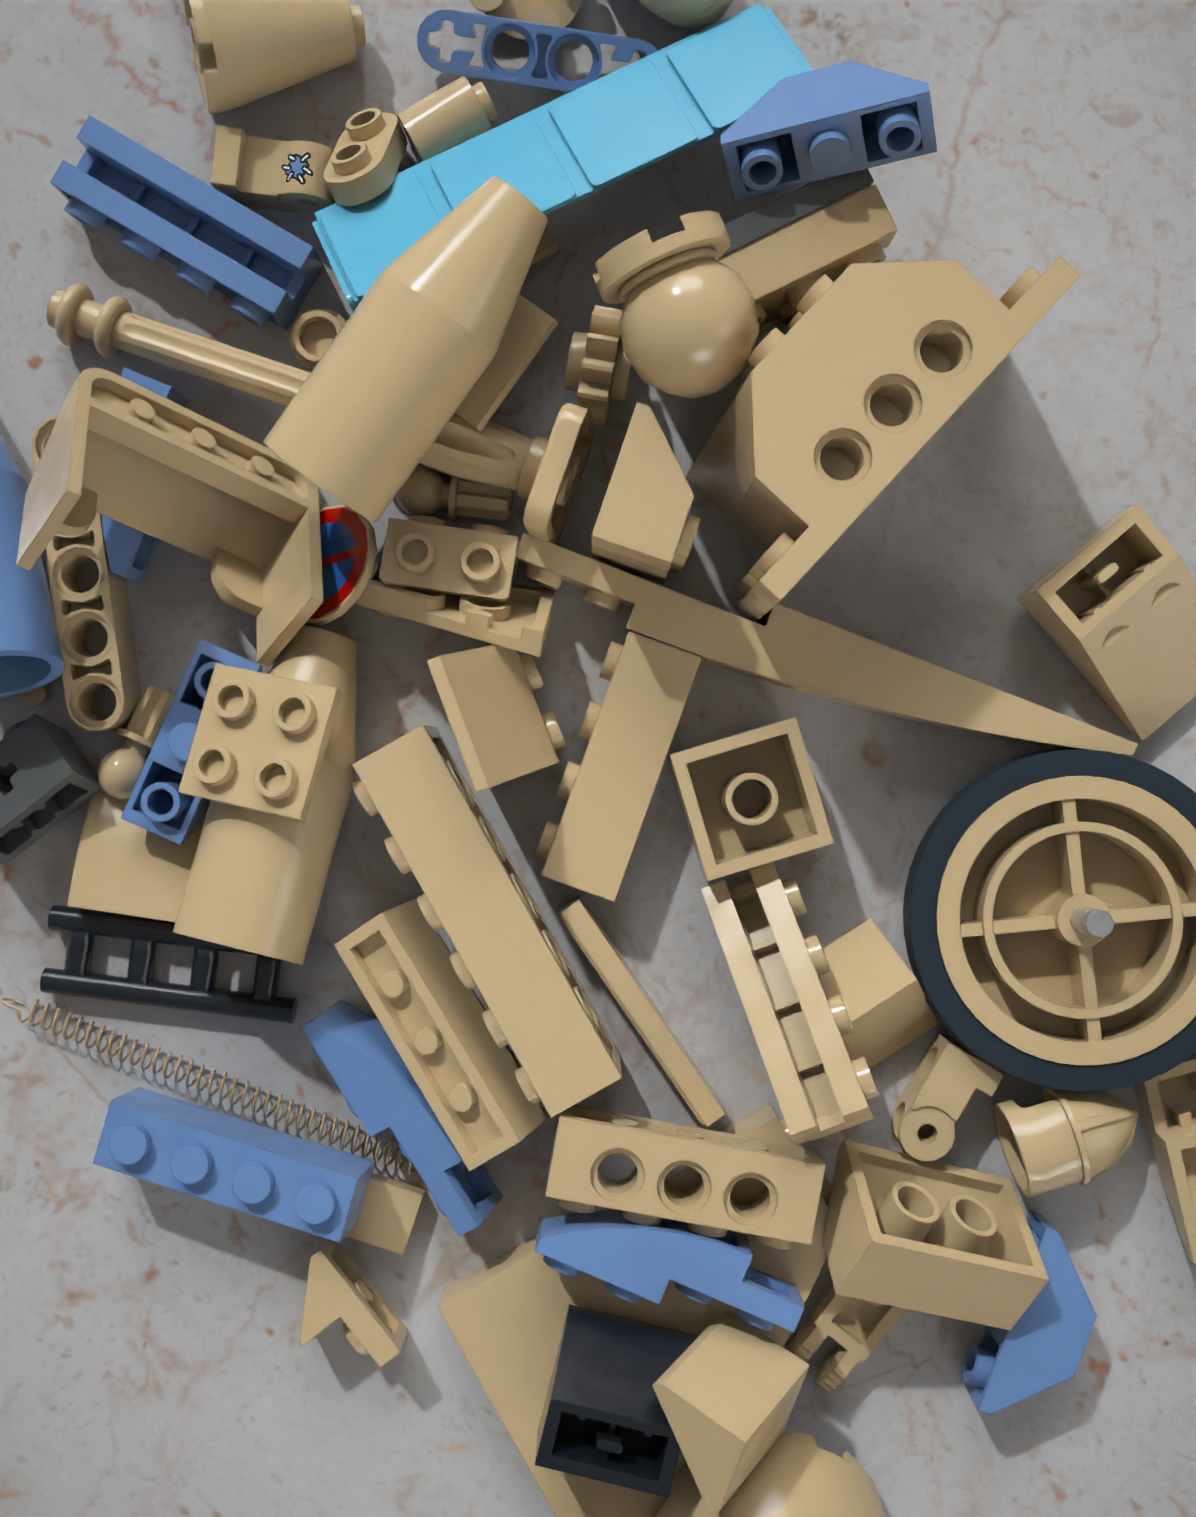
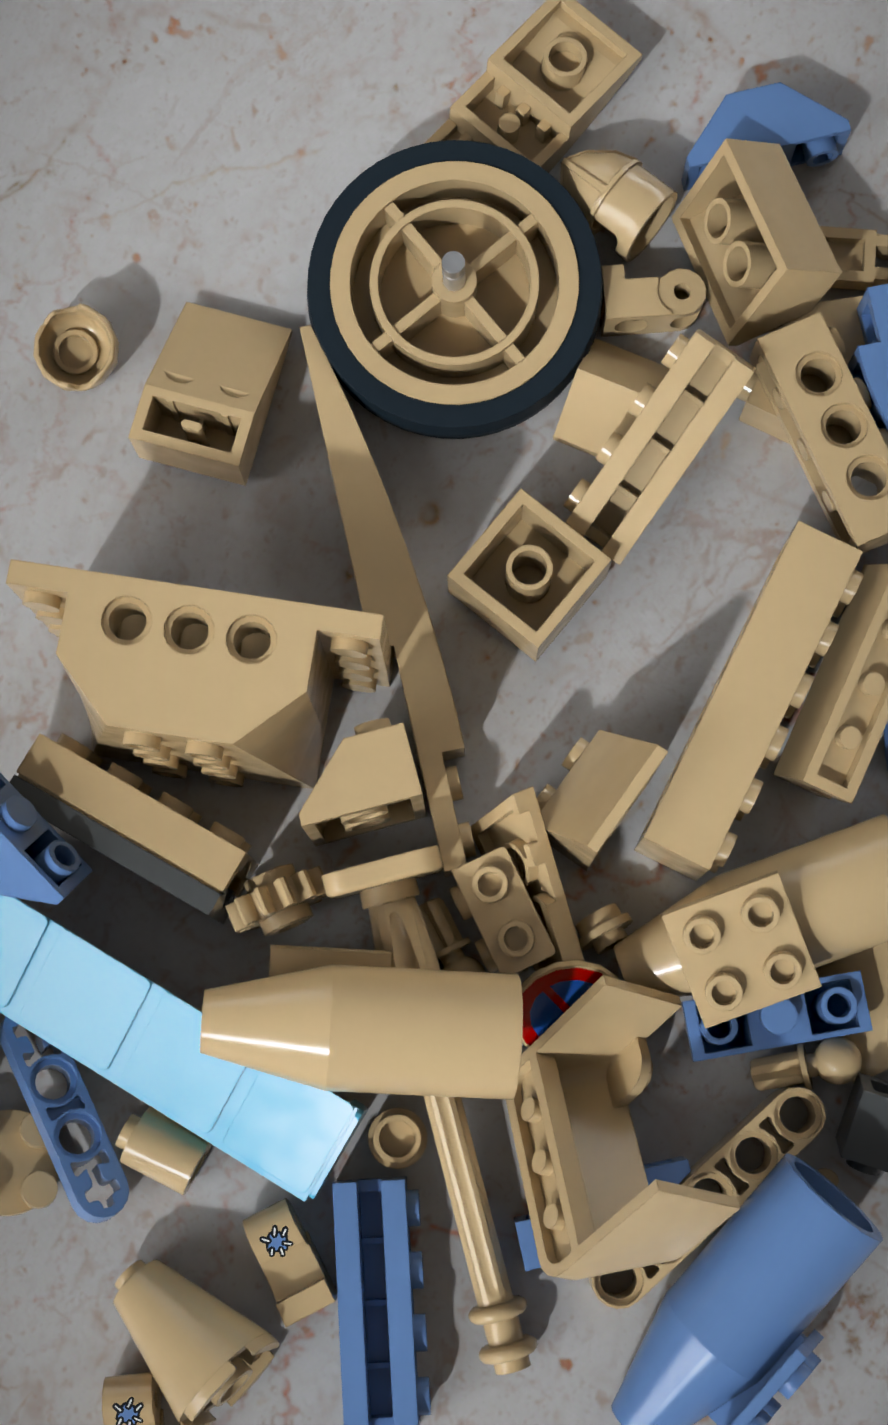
camera: 120 degrees left, 10 degrees down
(365, 157) = (234, 1191): tan plate -> none
(378, 646) = (603, 928): none -> tan plate
(620, 766) = (570, 687): tan brick -> none
(642, 1011) = (737, 552): tan tile -> none
(683, 312) = (213, 834): tan tile -> none

